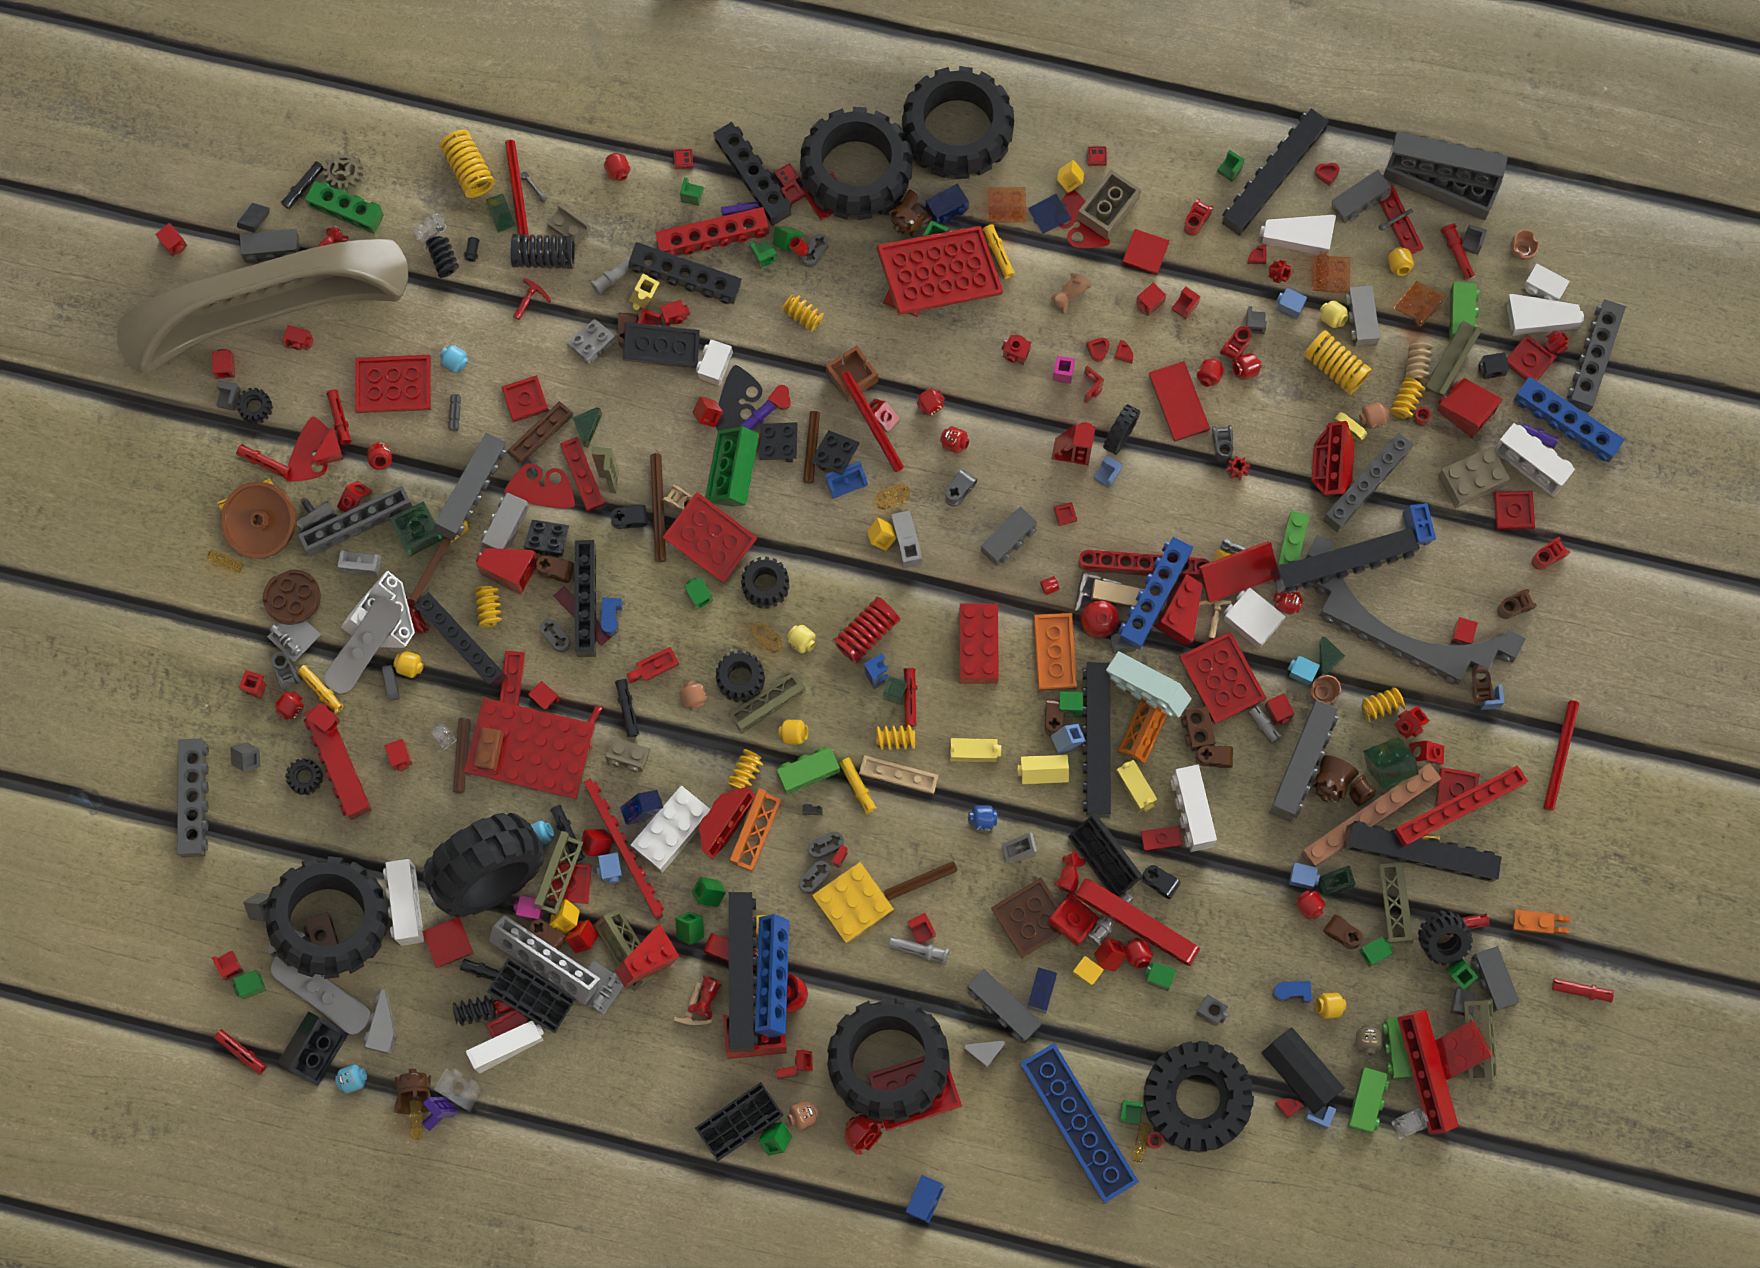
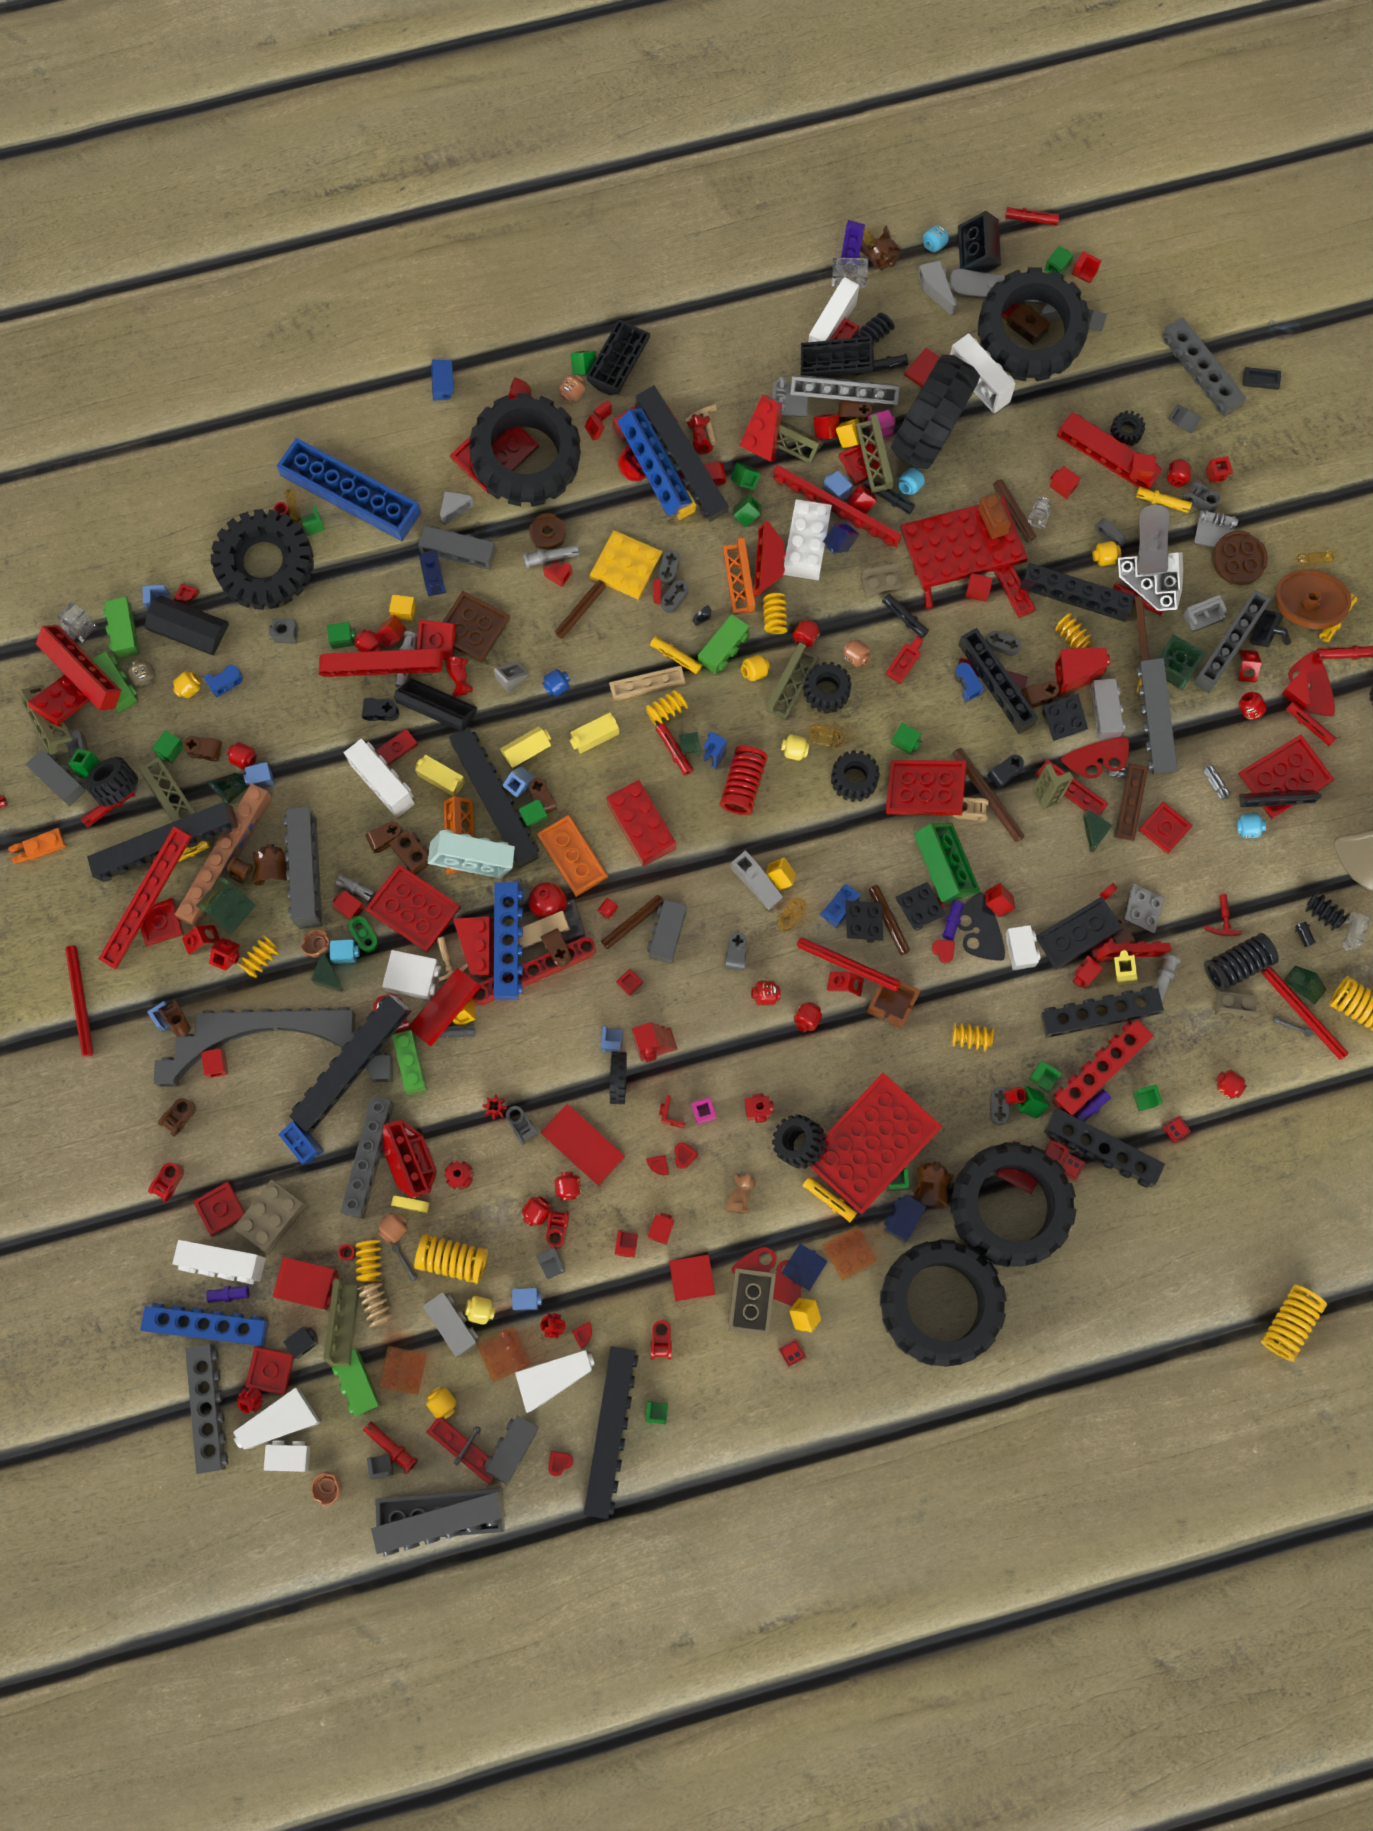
camera: 150 degrees right, 0 degrees up
(144, 759) = (1261, 378): none -> black tile
(414, 365) = (1279, 798): none -> black slope
(611, 370) = (1108, 891): none -> red tile
(629, 304) = (1139, 949): none -> red plate
(728, 739) = (806, 633): none -> red head
(899, 982) = (550, 541): none -> reddish brown plate
(1013, 302) = (787, 1134): none -> black tyre
(1034, 563) = (632, 922): none -> reddish brown axle
(1115, 567) = (556, 945): none -> reddish brown piece
(1278, 679) = (363, 935): none -> green plate
(1295, 432) = (466, 1175): none -> red brick
(1375, 371) = (396, 1248): none -> dark grey hinge

